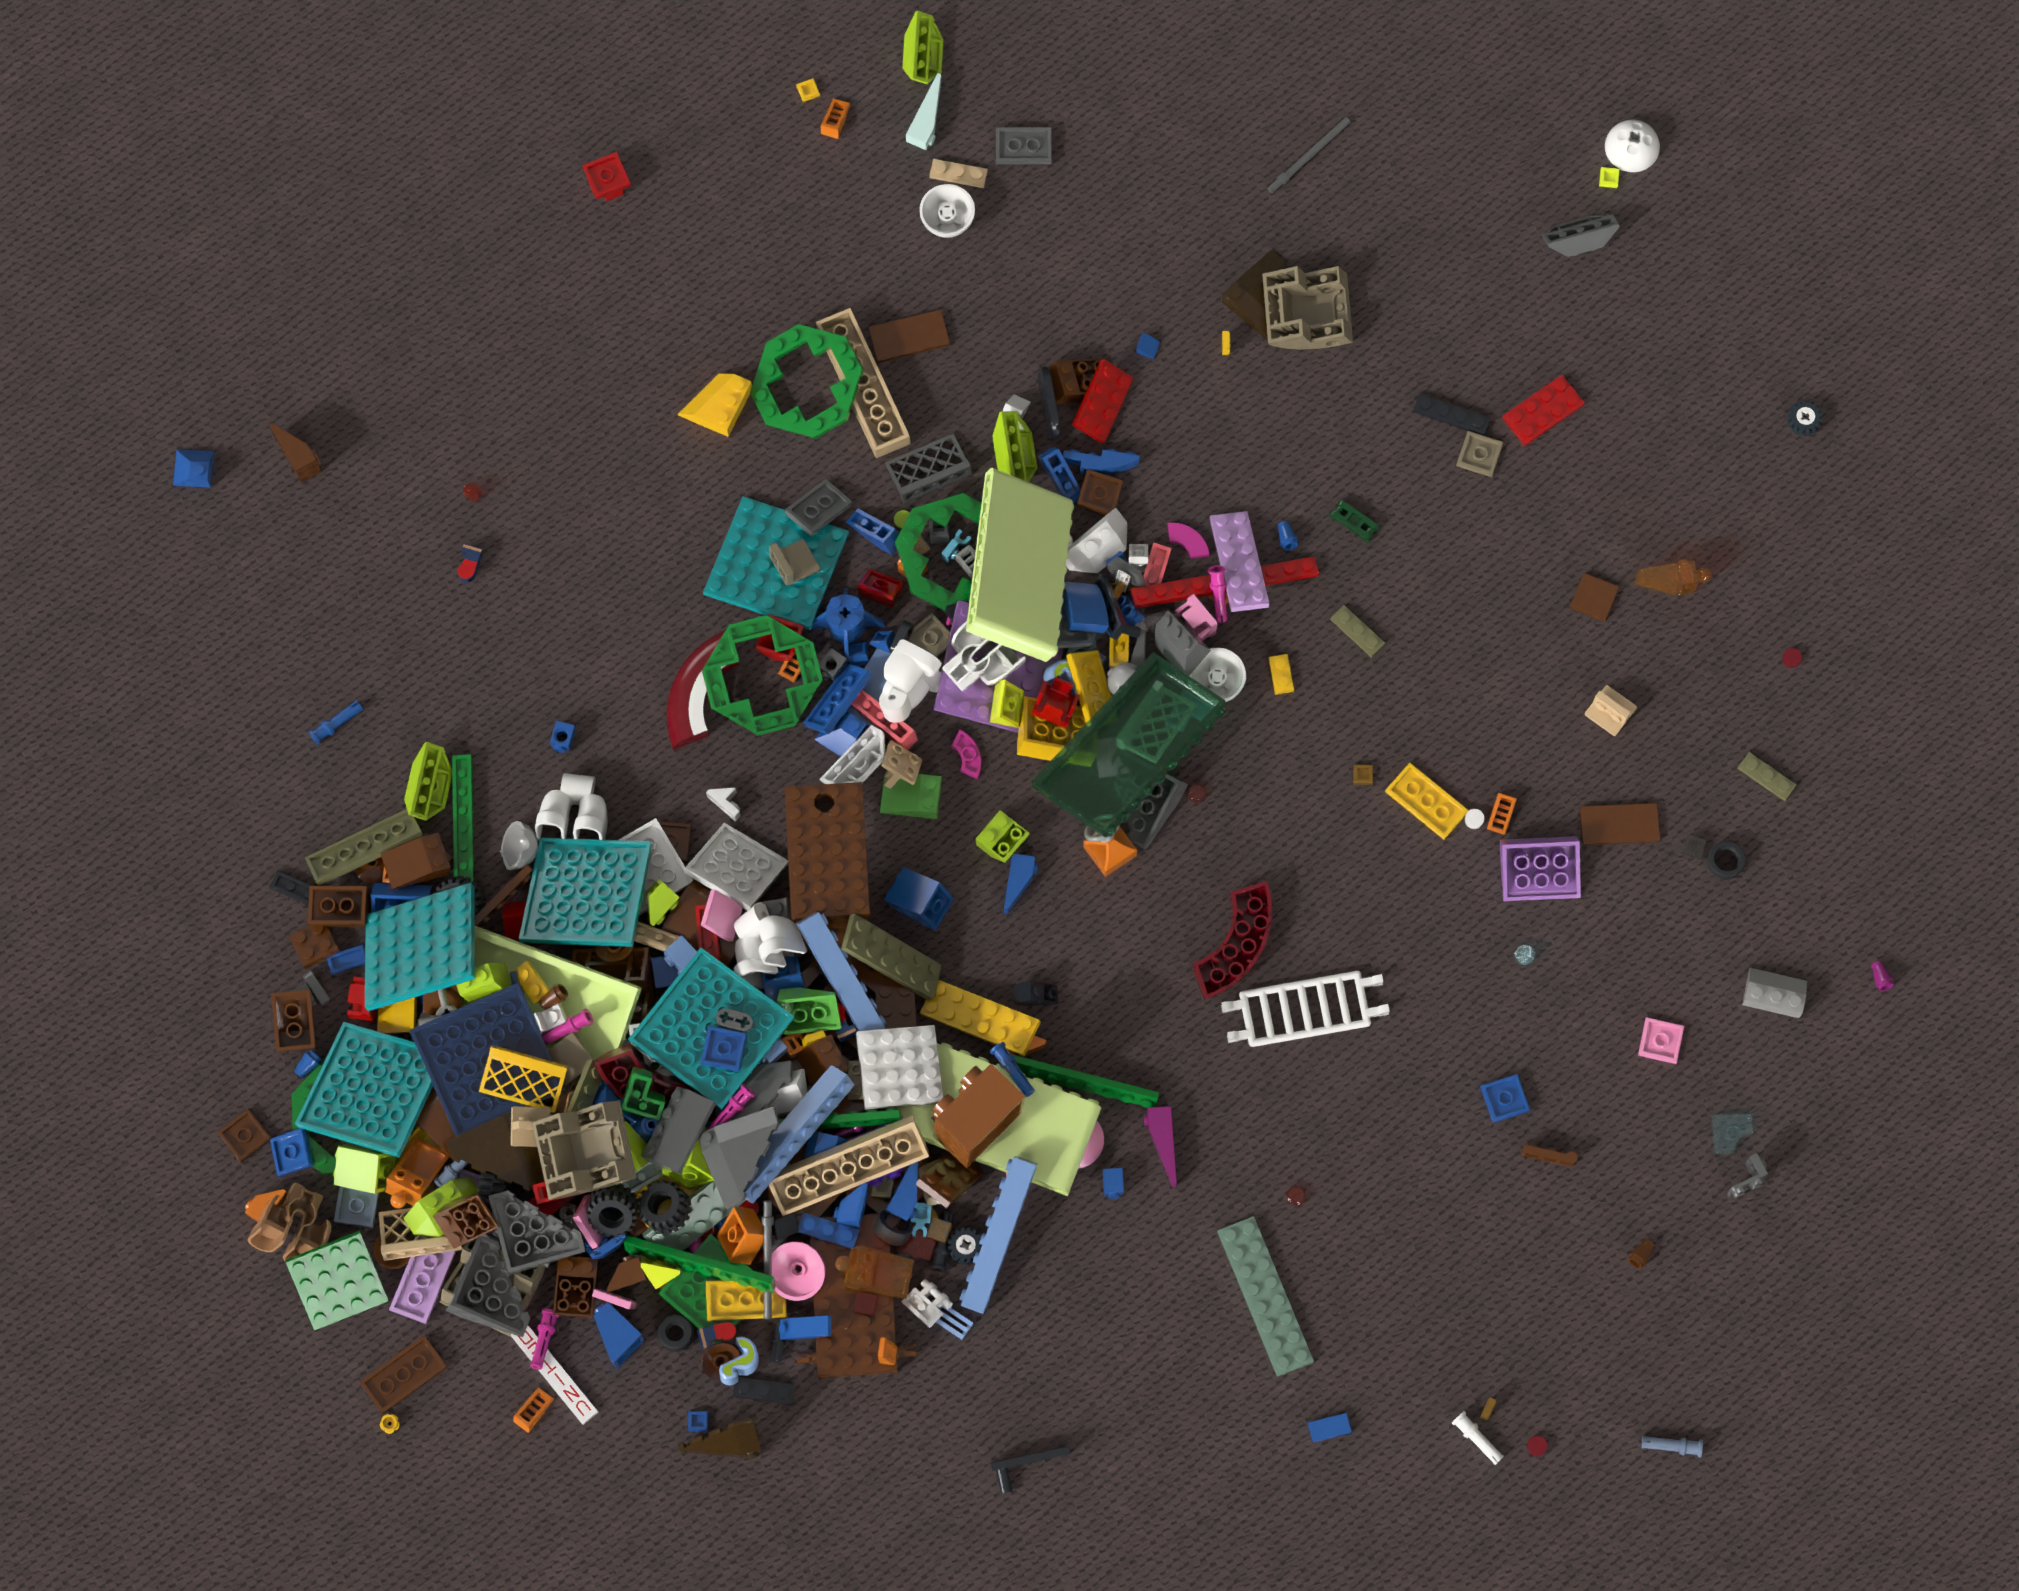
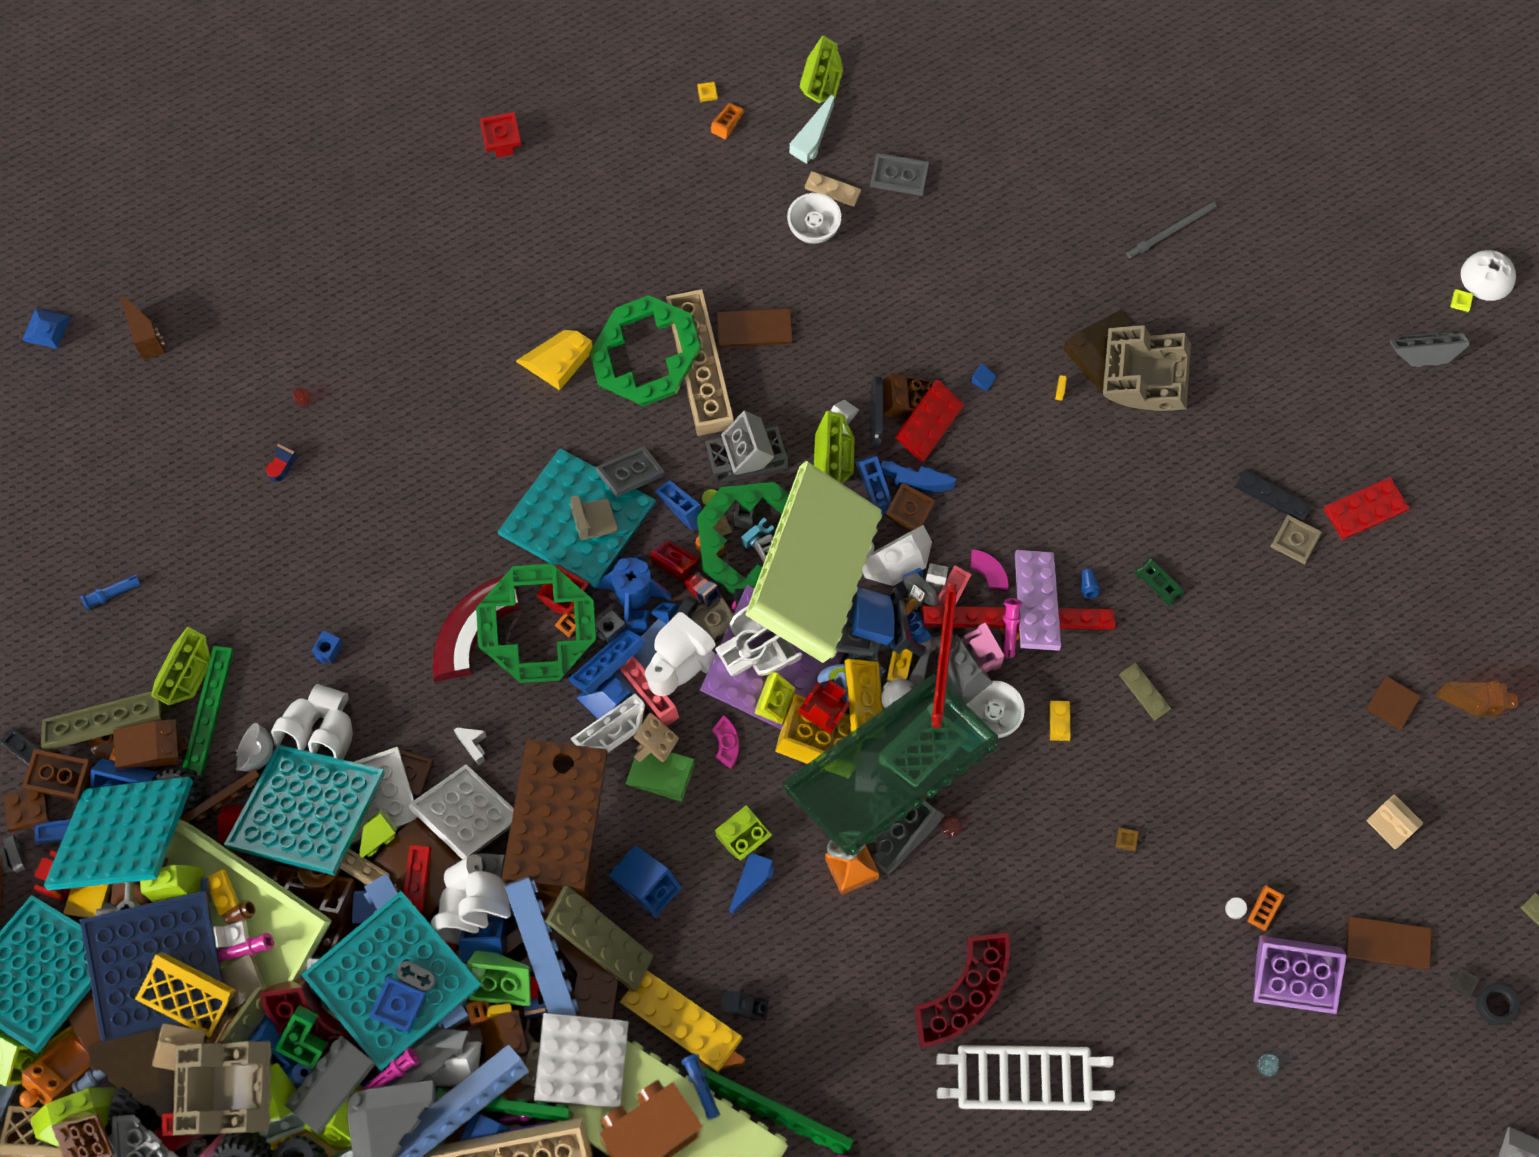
camera: 10 degrees right, 5 degrees down
(721, 915) = (433, 860): bright pink tile -> none
(914, 611) = (702, 589): none -> leg
(928, 459) = (747, 444): none -> light grey slope
(1160, 634) = (944, 655): none -> red piece
(1426, 801) = (1189, 879): yellow tile -> none

